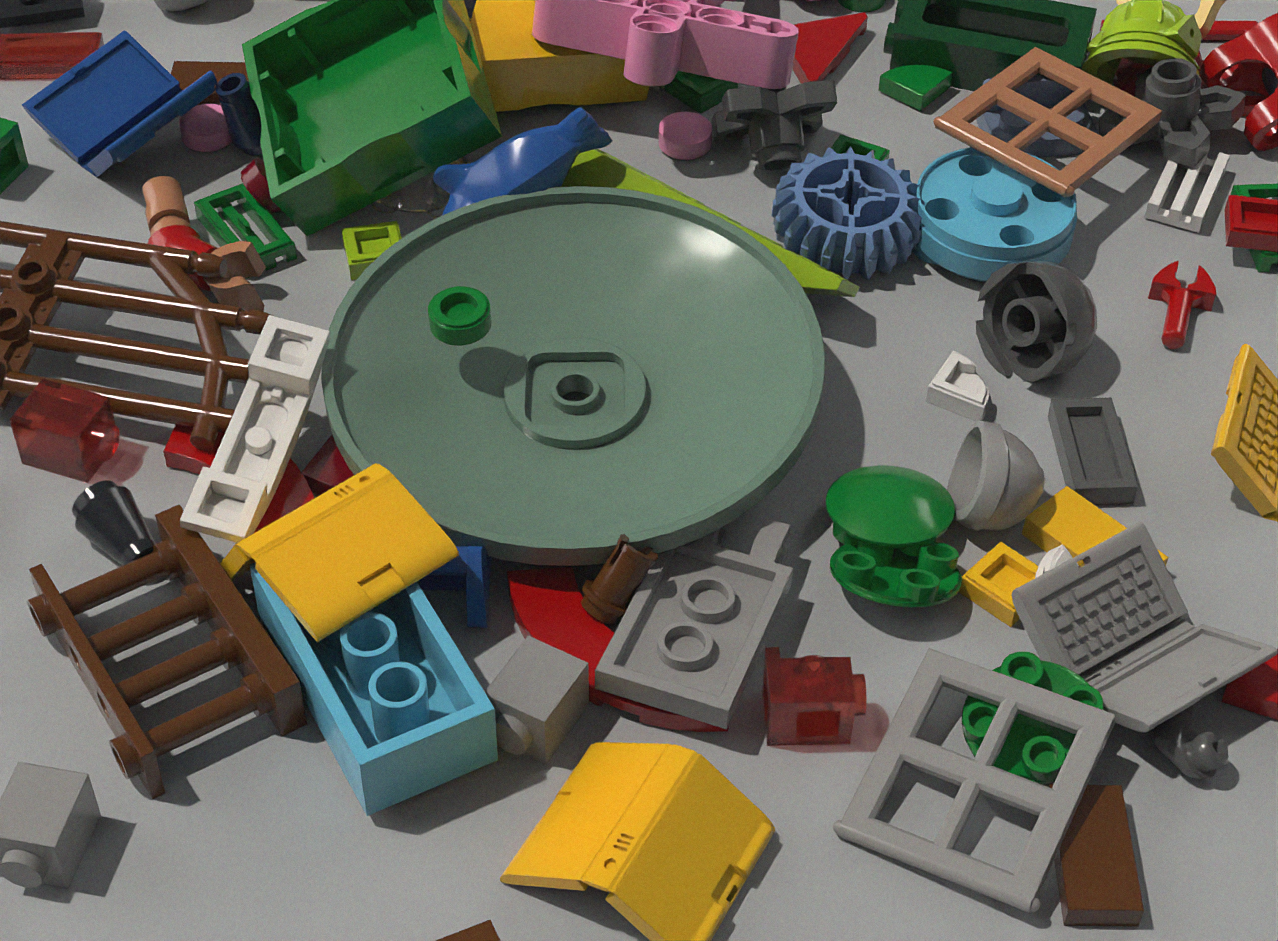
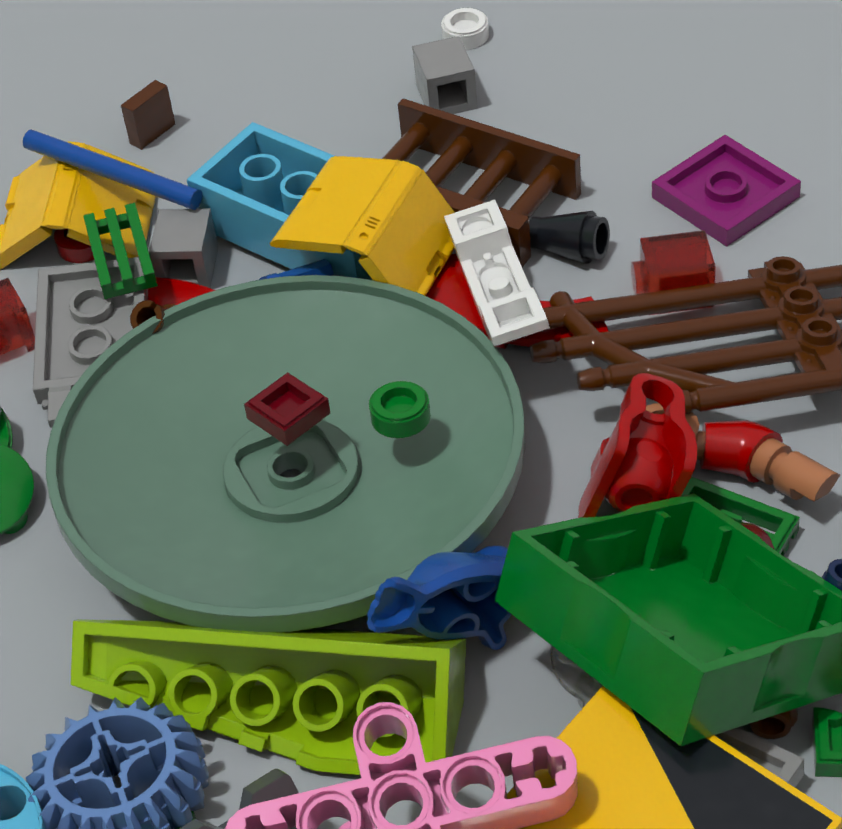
camera: 160 degrees right, 0 degrees up
(308, 233) = (647, 453): none -> red piece
(559, 358) = (287, 408): none -> dark red tile
(580, 795) = (113, 169): none -> blue bar
(630, 627) = (113, 224): none -> green tile

